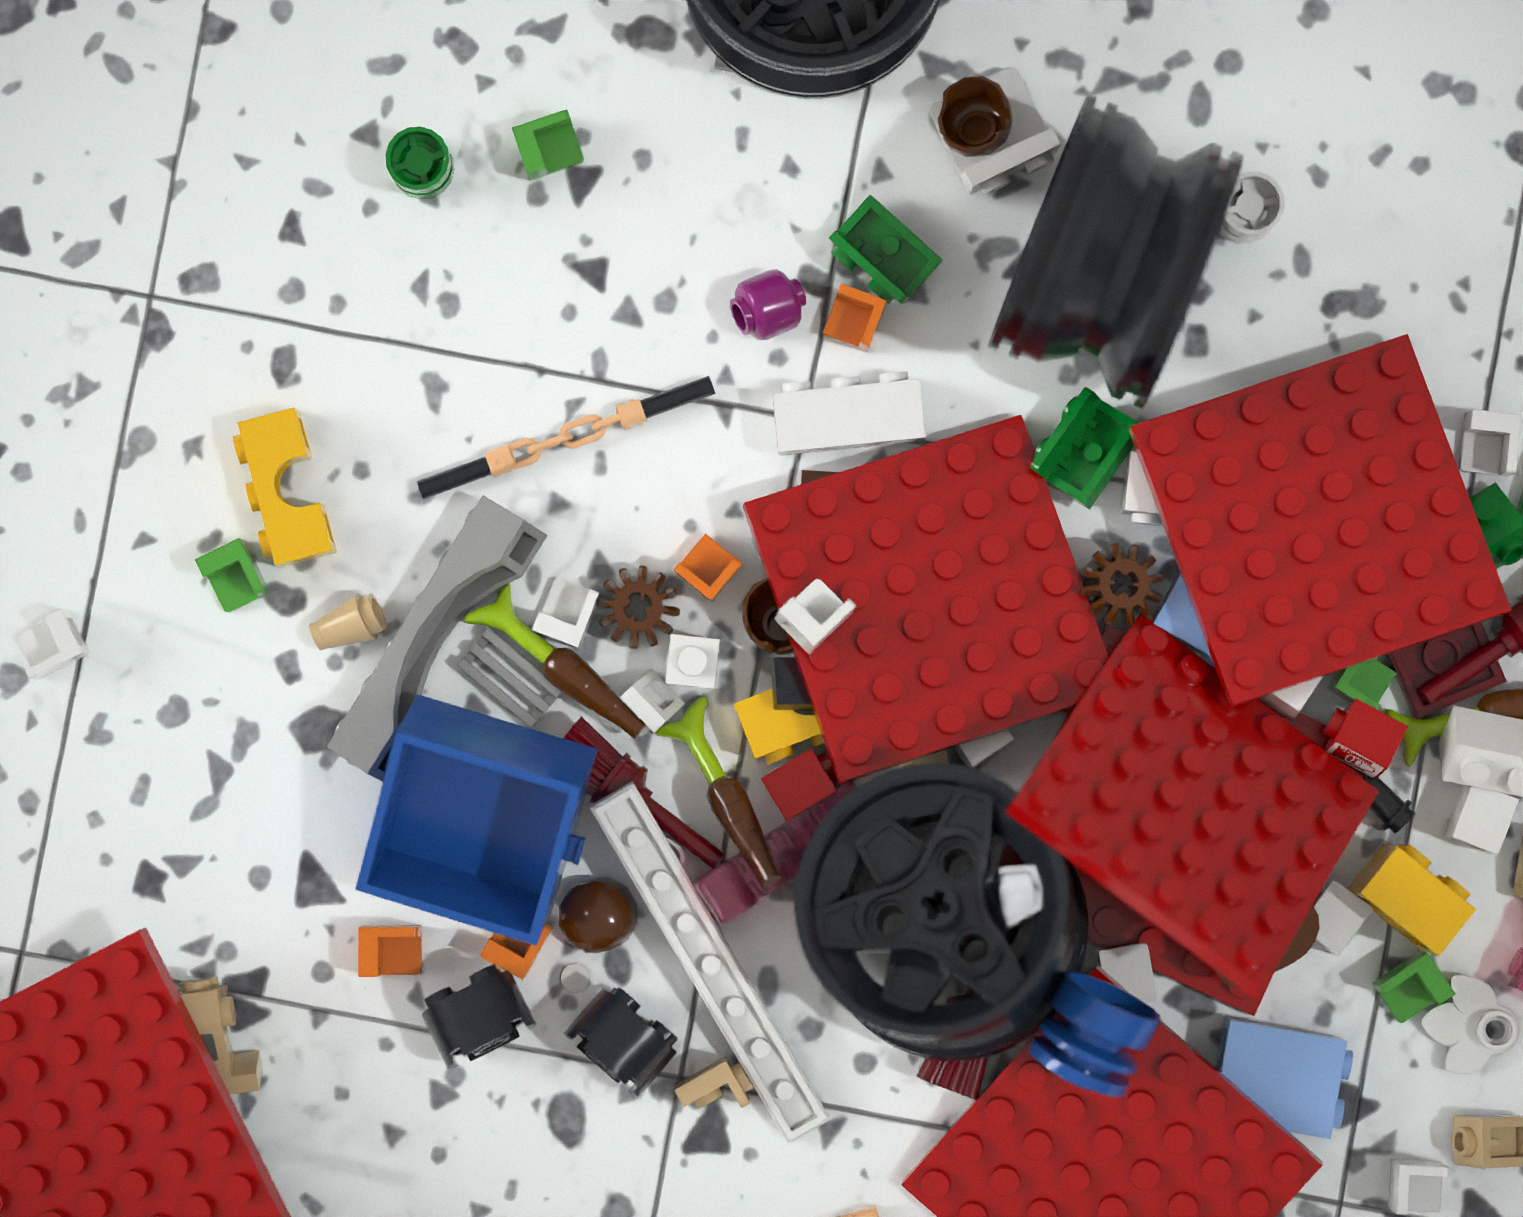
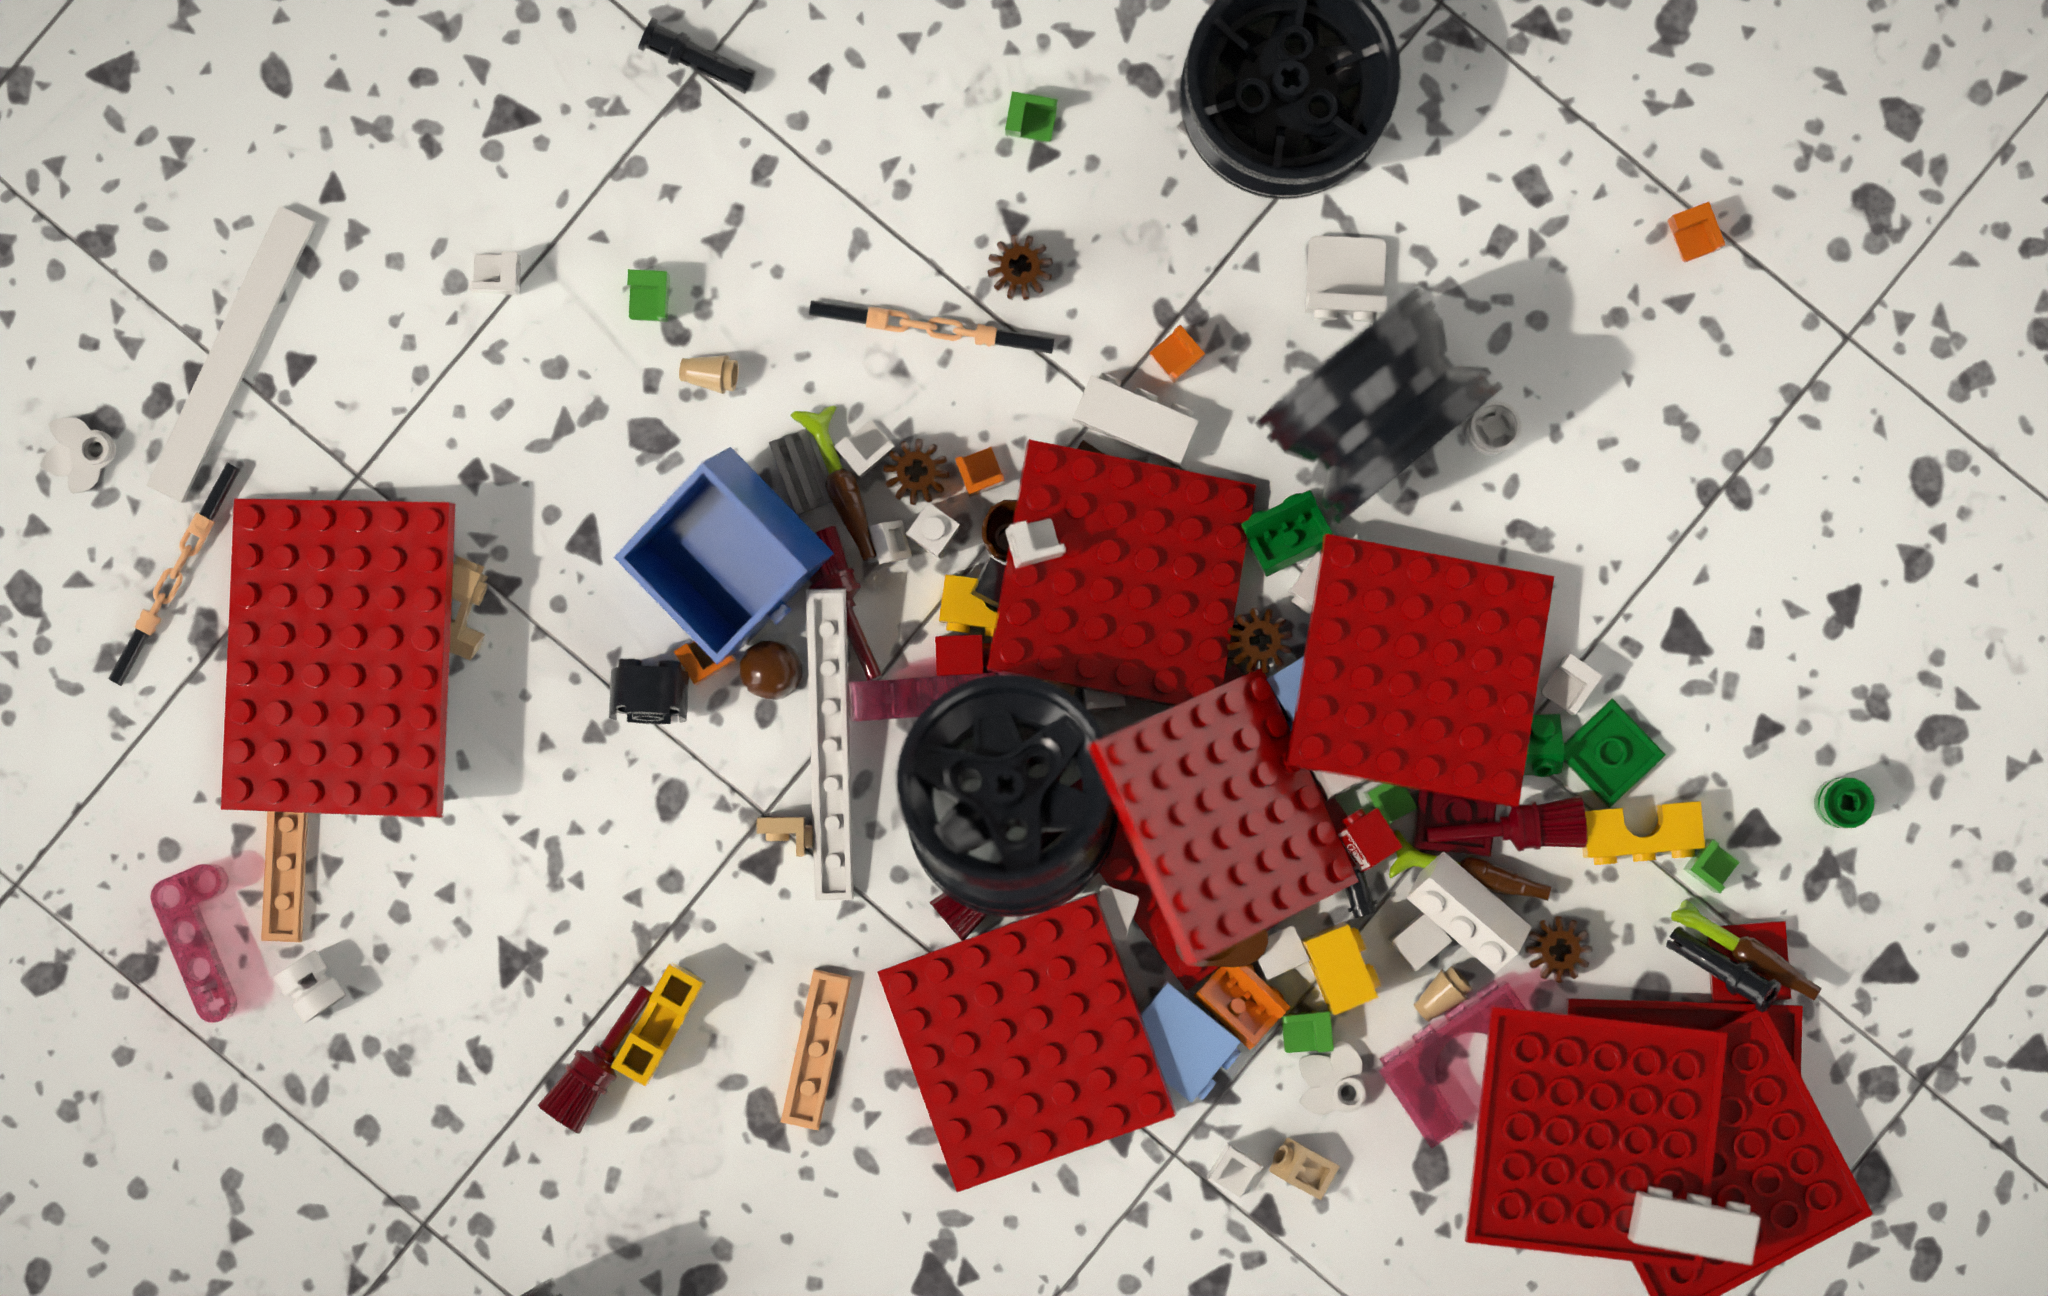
camera: 25 degrees right, 0 degrees up
(118, 284) = (680, 49): none -> black pin
(269, 448) = (721, 220): yellow arch -> none
(389, 950) = (613, 614): orange panel -> none
(419, 162) = (935, 80): green wheel -> none
(485, 555) = (831, 377): light grey arch -> none
(575, 977) = (731, 704): white sticker -> none
(613, 310) = (1013, 256): none -> reddish brown gear
(622, 1040) = (739, 764): black brick -> none
(725, 794) = (904, 633): reddish brown piece -> none
(767, 304) = (1122, 311): magenta head -> none
(885, 251) = (1224, 319): green bracket -> none
(975, 116) = (1337, 260): reddish brown hair -> none
(1090, 1042) = (1060, 940): blue wheel -> none
(1324, 995) = (1242, 1002): none -> orange bracket

